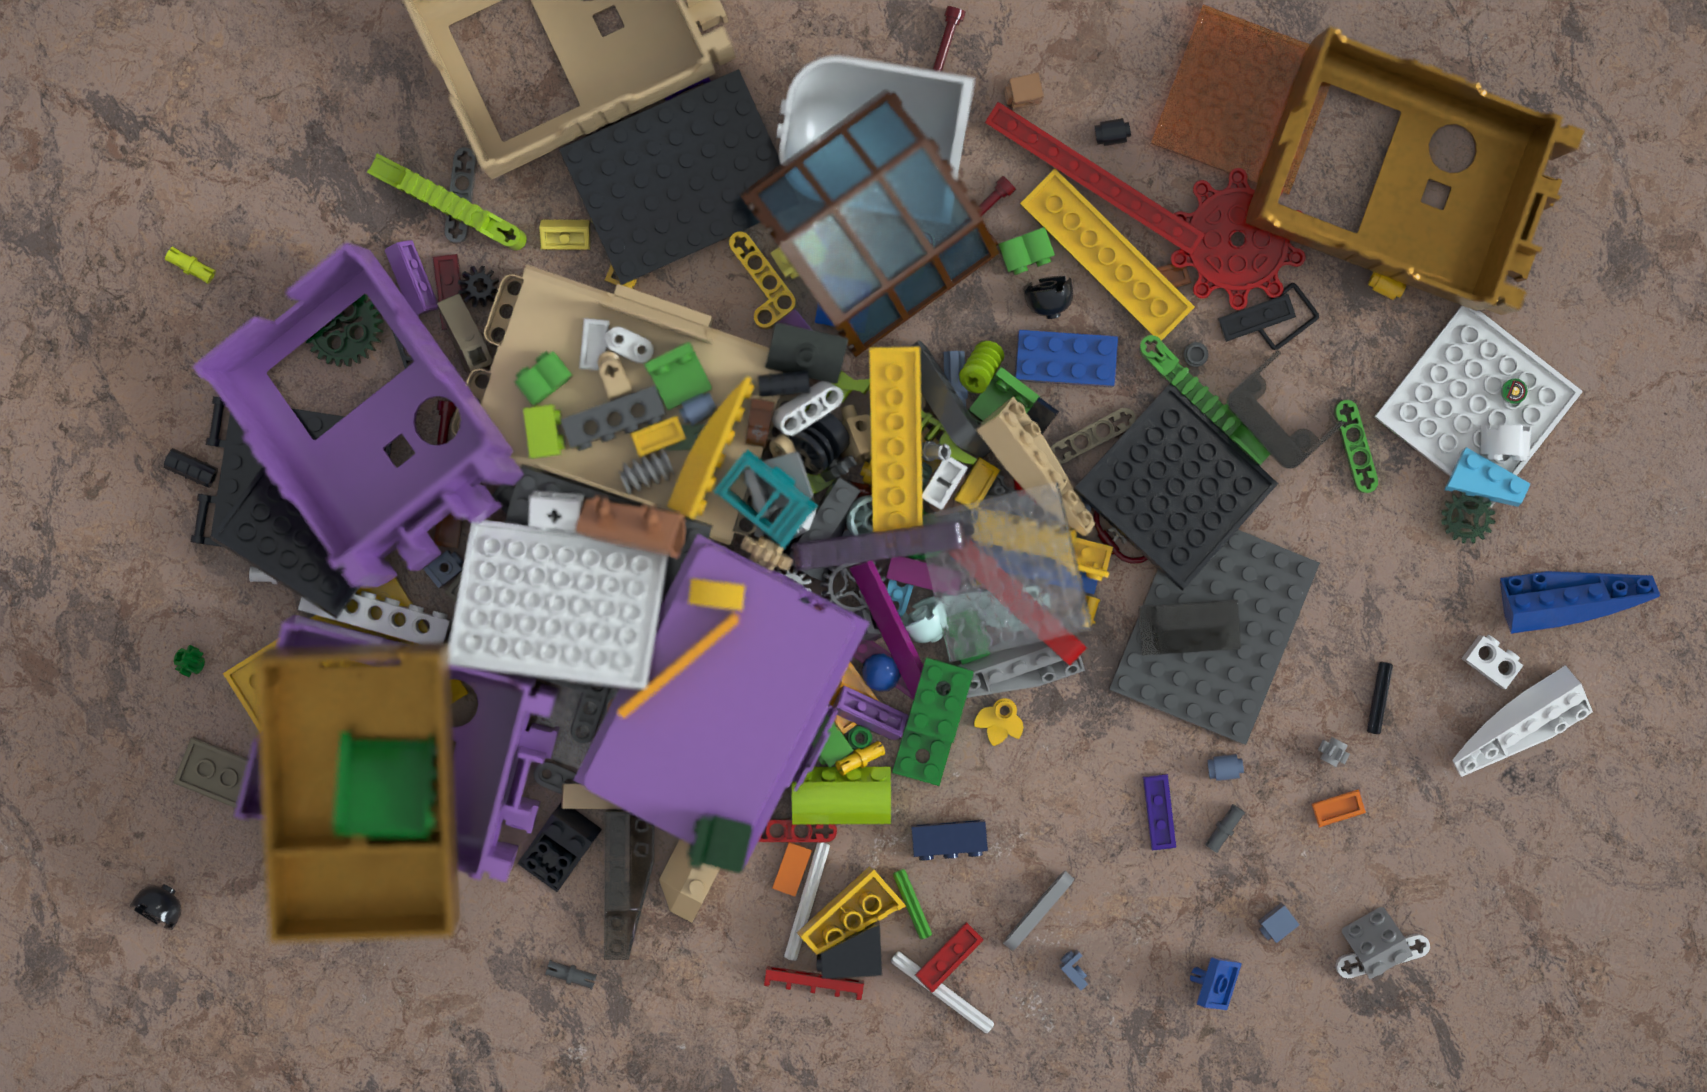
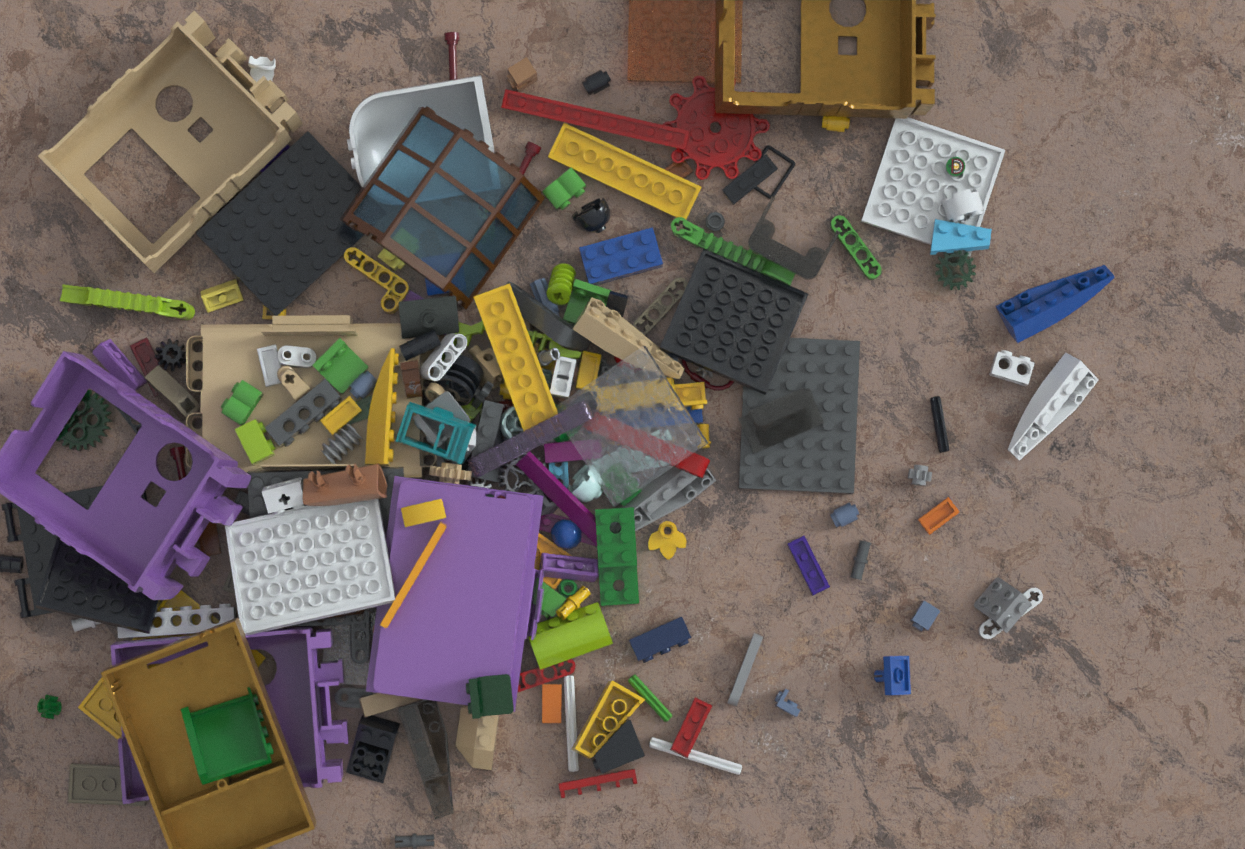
camera: 25 degrees left, 5 degrees down
(437, 575) = (213, 578): sand blue brick -> none
(467, 193) = (135, 269): dark grey beam -> none

